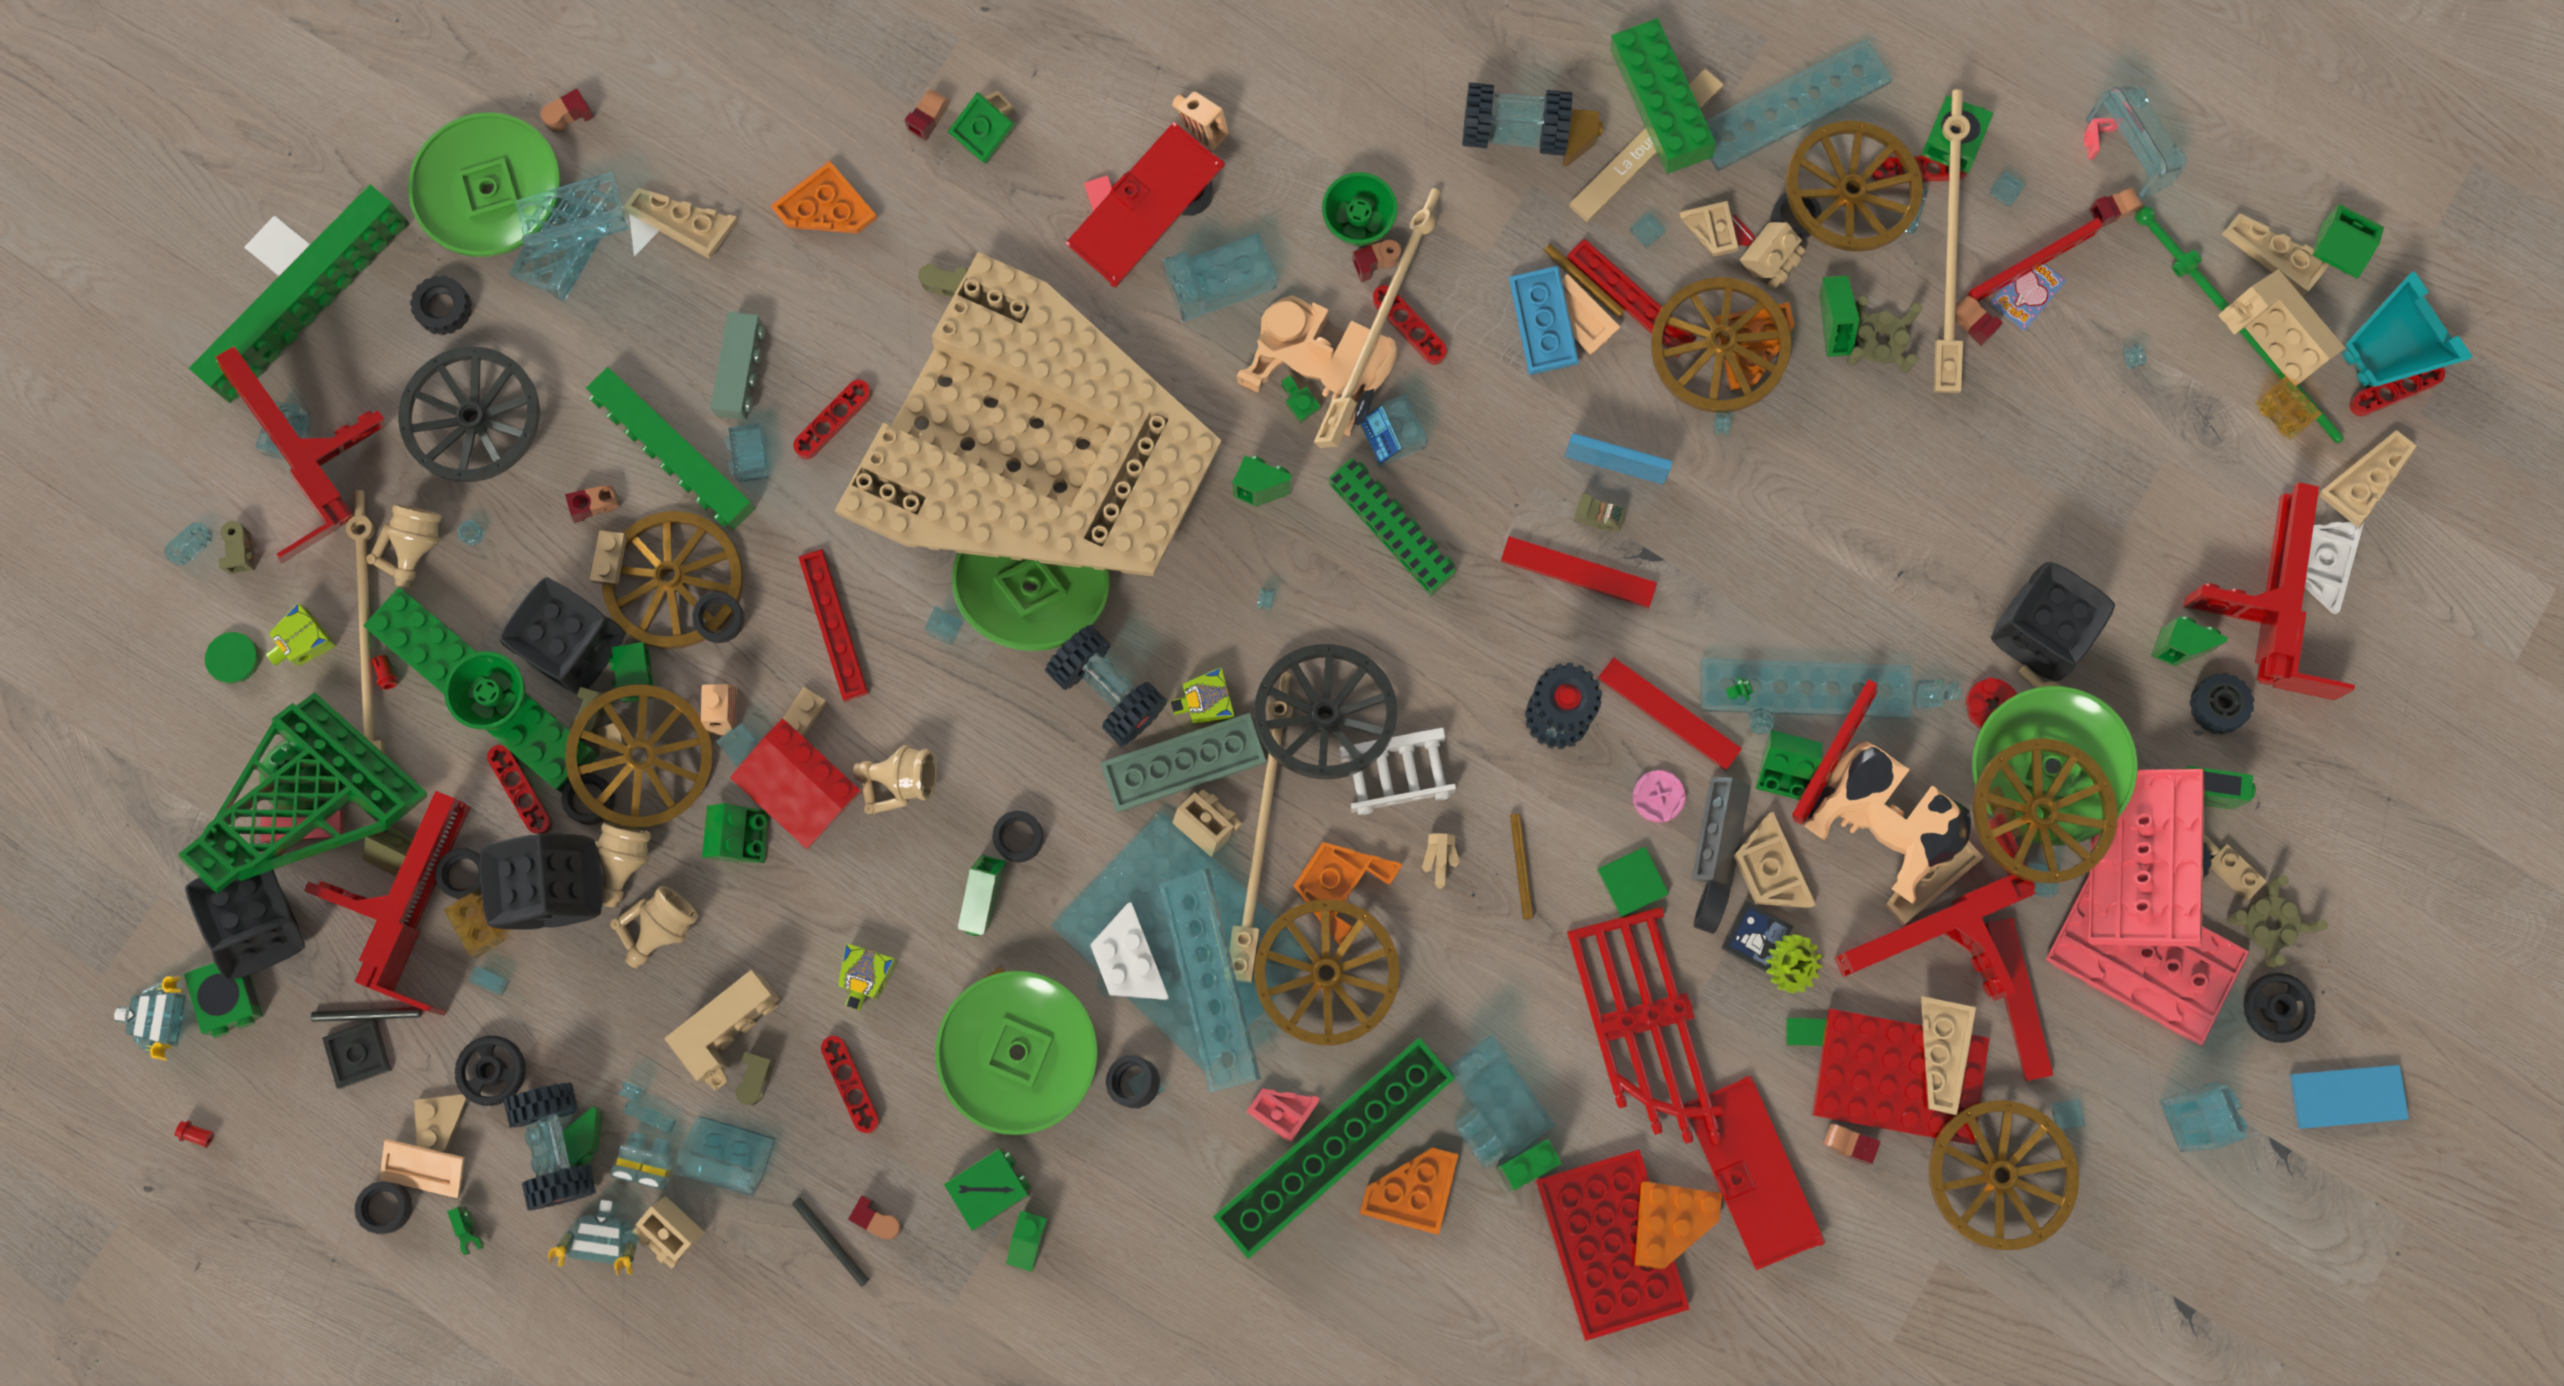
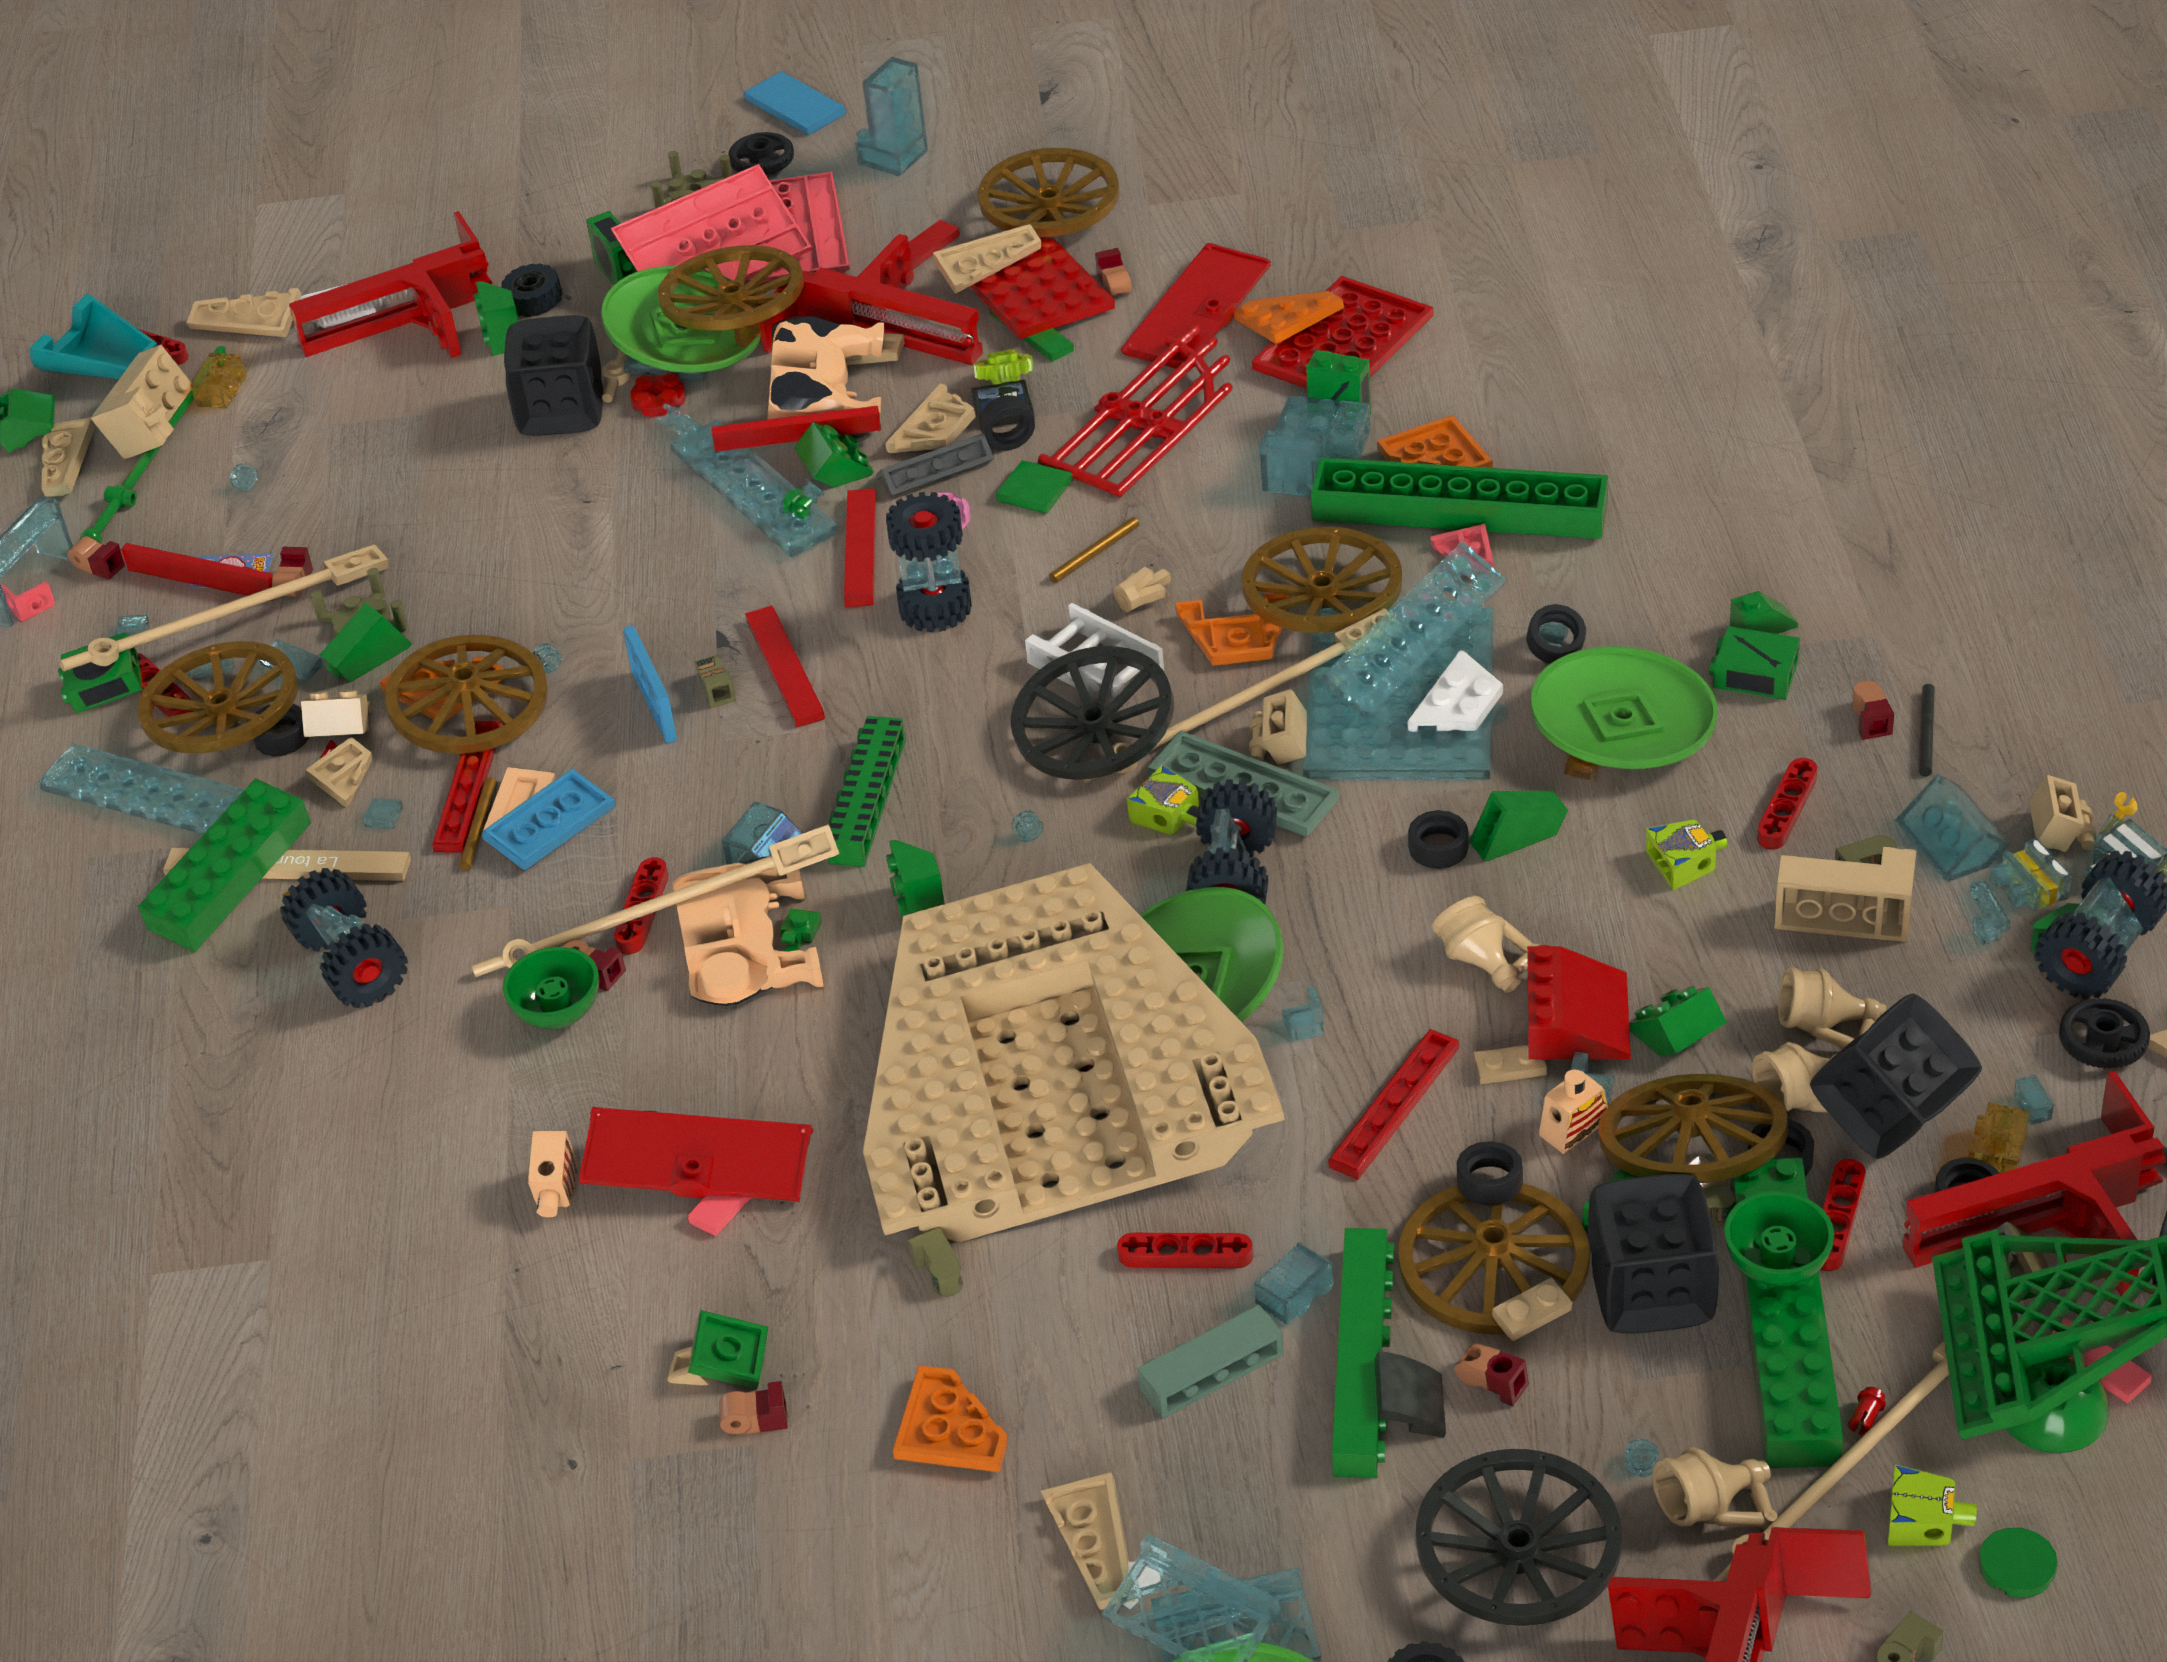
camera: 125 degrees left, 35 degrees down
(612, 443) = (1410, 1393): none -> pearl dark grey slope
(1219, 276) = (726, 1053): clear light blue hinge -> none
(1870, 264) = (304, 662): none -> clear light blue plate
(2067, 1114) = (962, 203): clear light blue tile -> none

